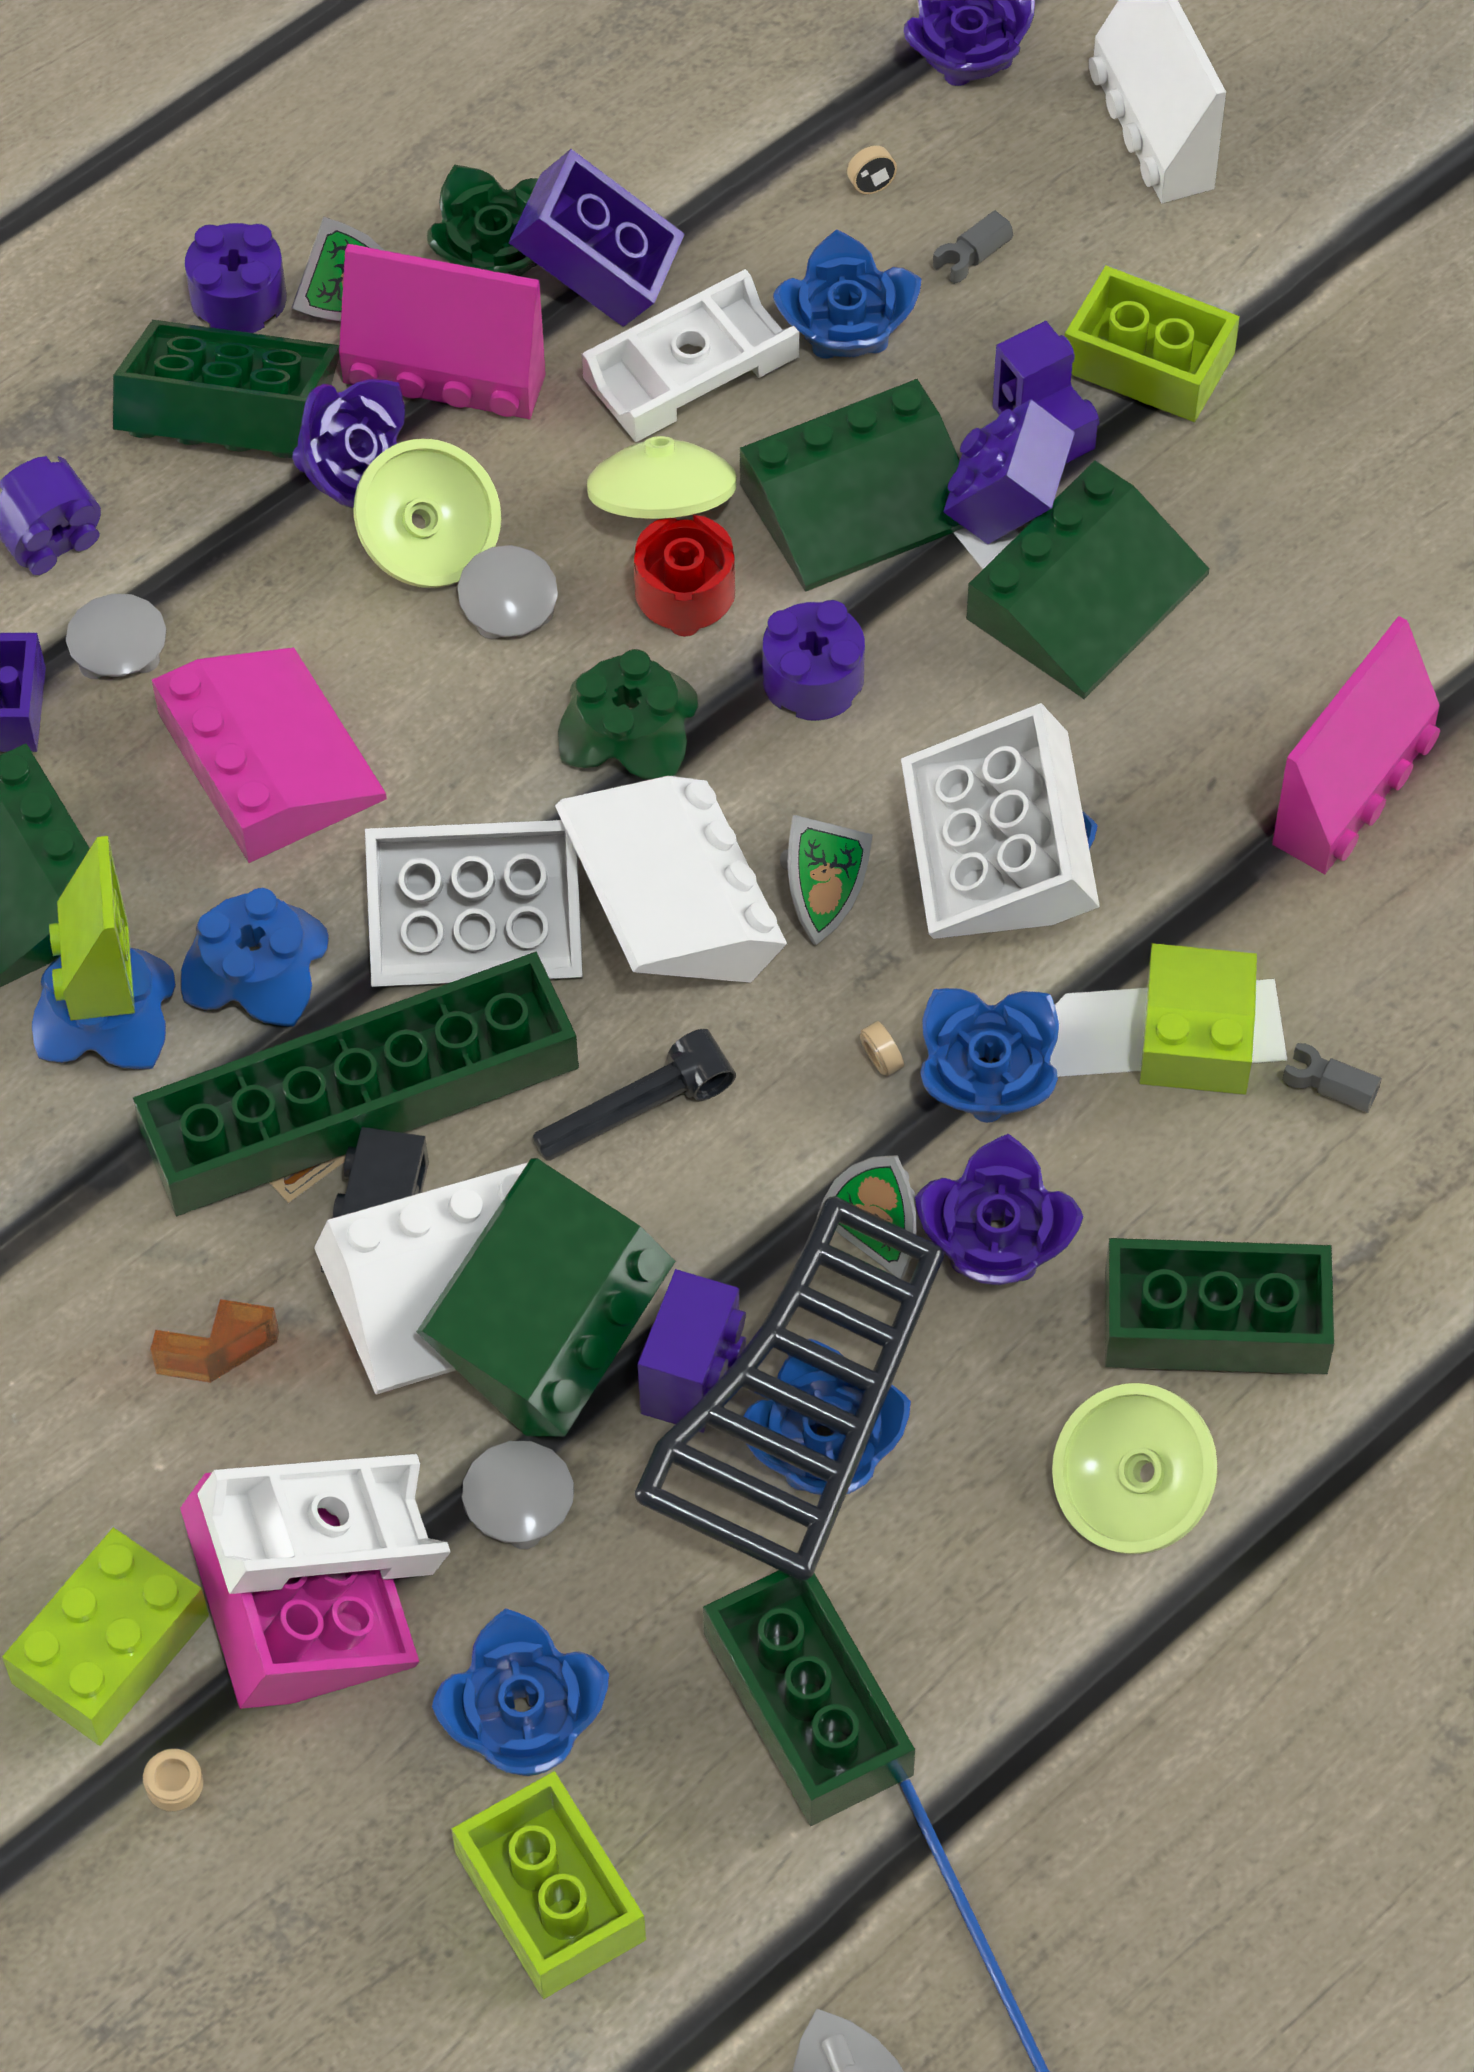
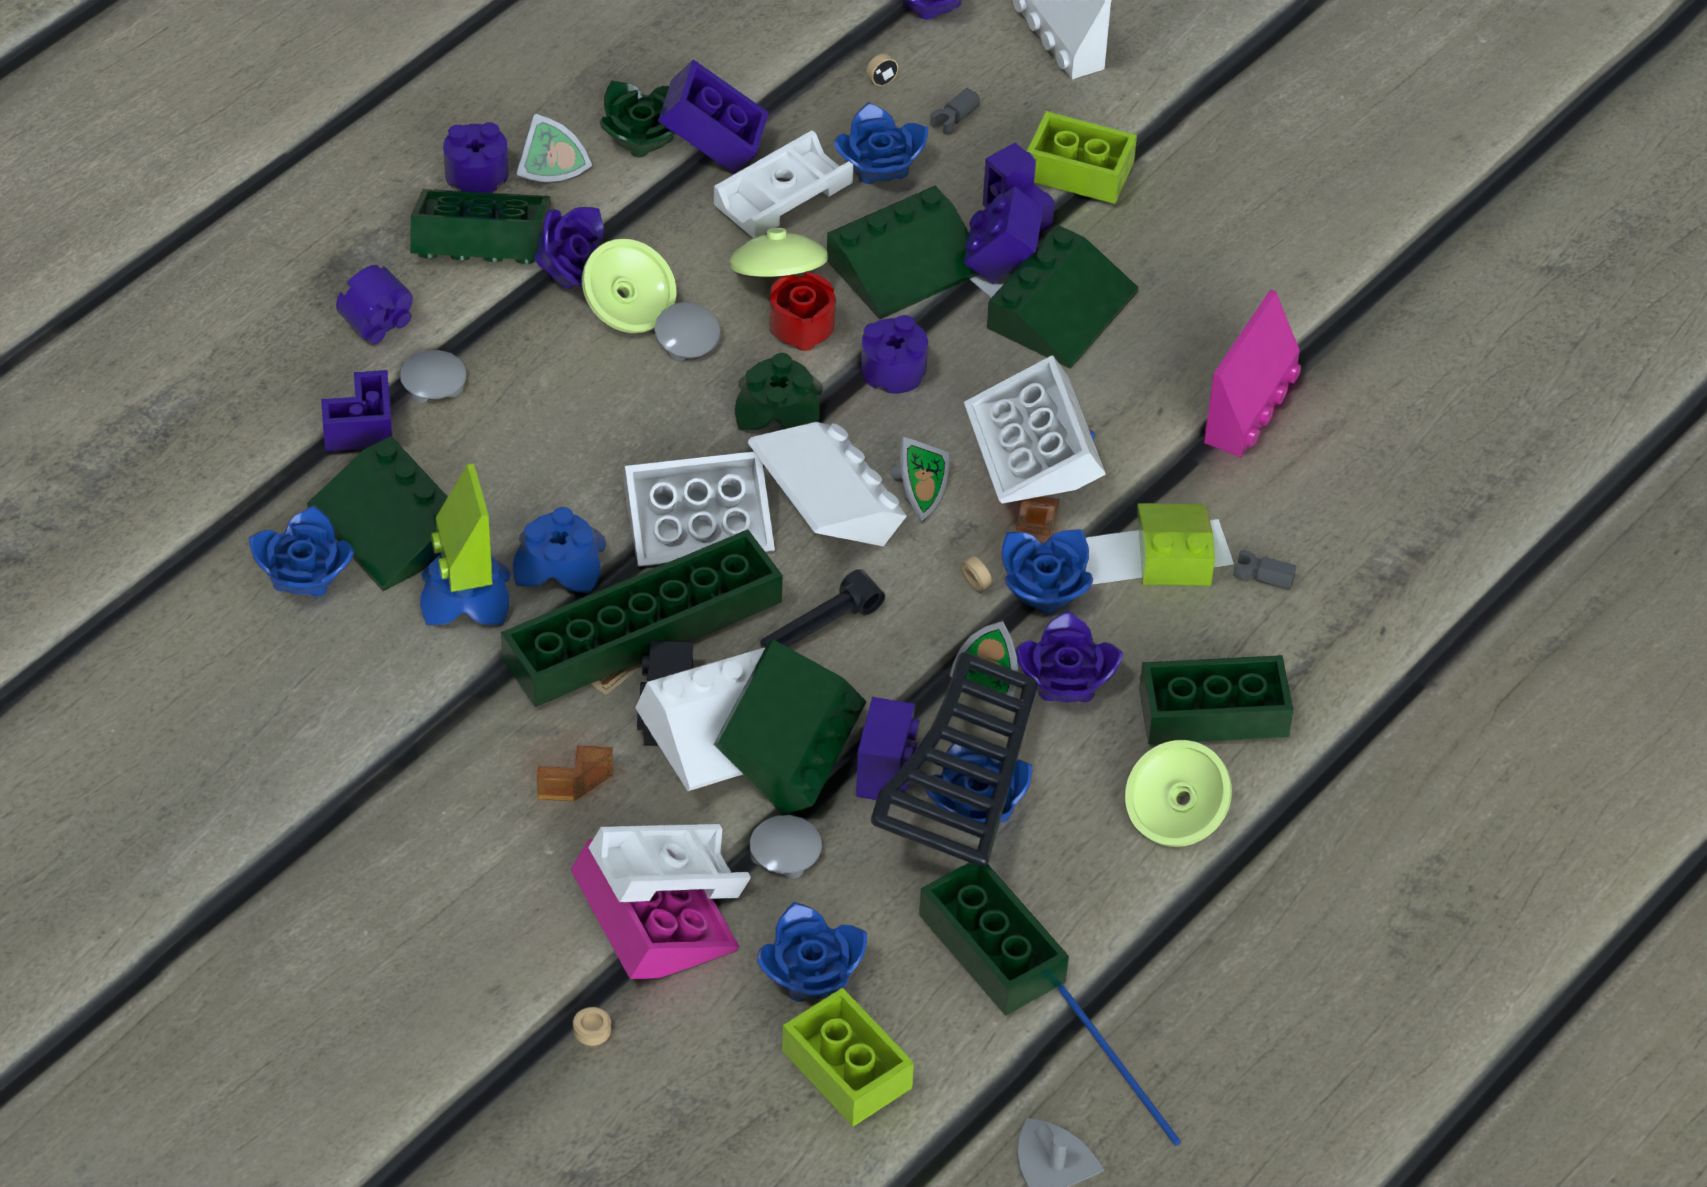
camera: 10 degrees left, 10 degrees down
(106, 1636) = (536, 945): lime brick -> none
(265, 747) = (542, 432): dark pink slope -> none
(442, 331) = (625, 173): dark pink slope -> none
(991, 961) = (1038, 515): none -> clear orange slope

